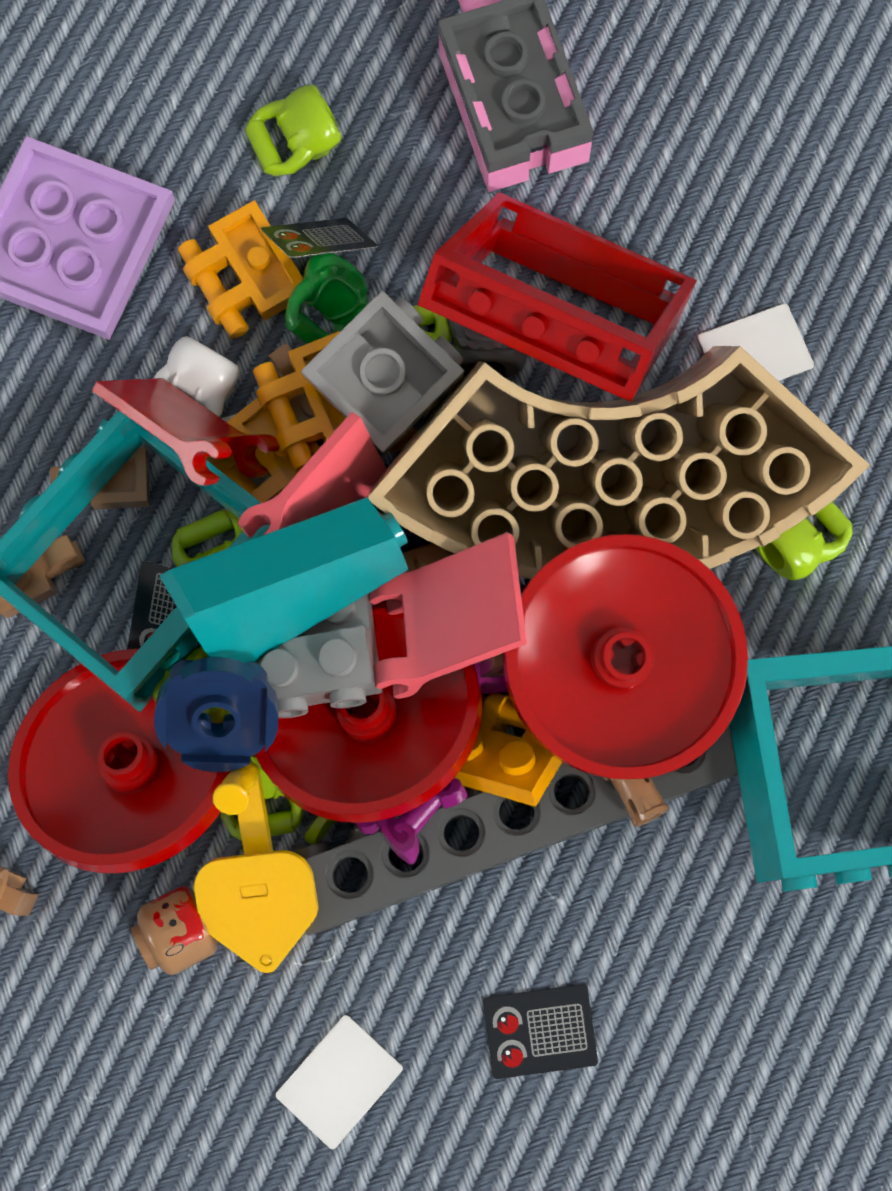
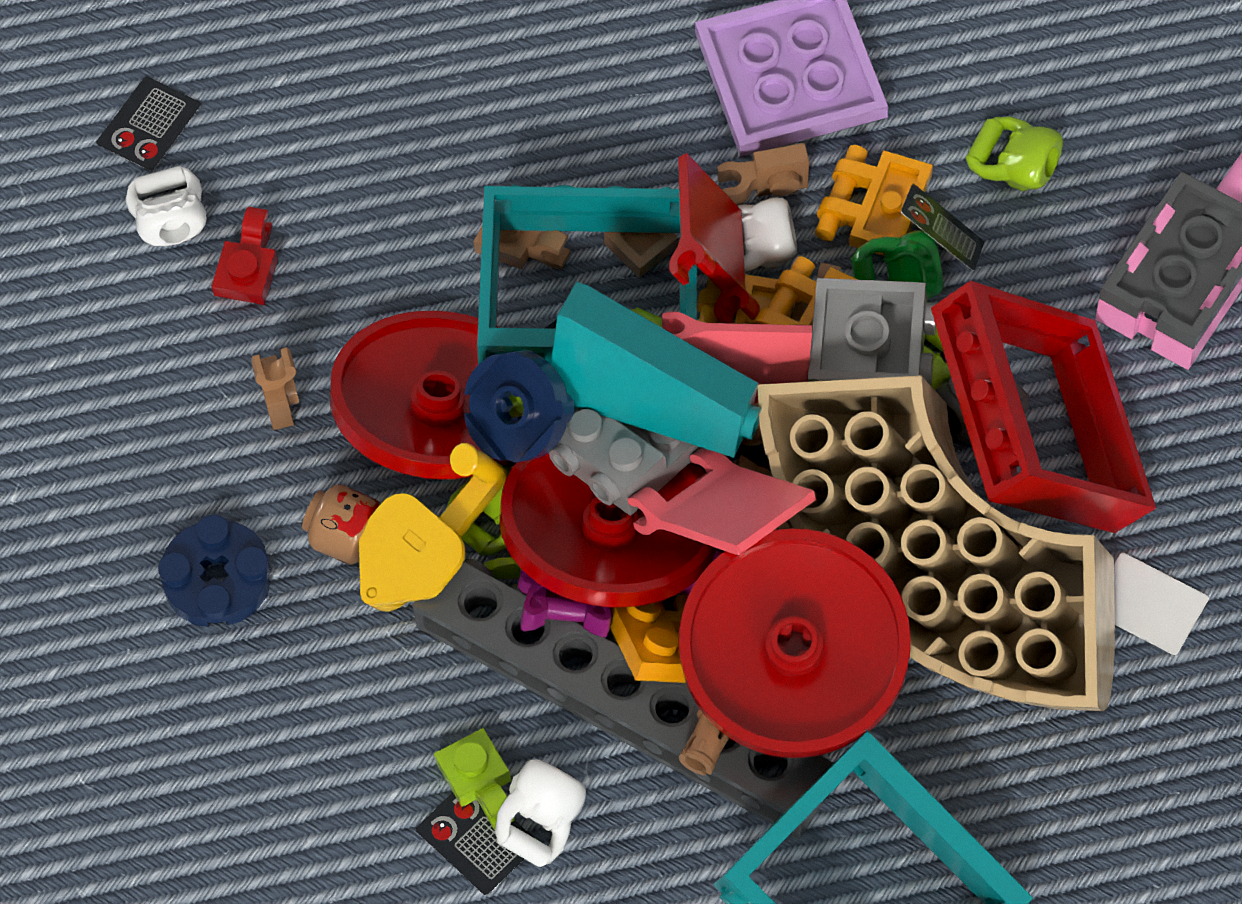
camera: 50 degrees right, 15 degrees down
(101, 1100) = (213, 543): none -> dark blue plate
(151, 324) = (771, 172): none -> medium nougat plate
(339, 1082) = (325, 725): white sticker -> none
(485, 991) = (475, 772): none -> lime plate
(561, 957) = (548, 799): none -> white piece
(804, 548) = (1012, 735): lime piece -> none

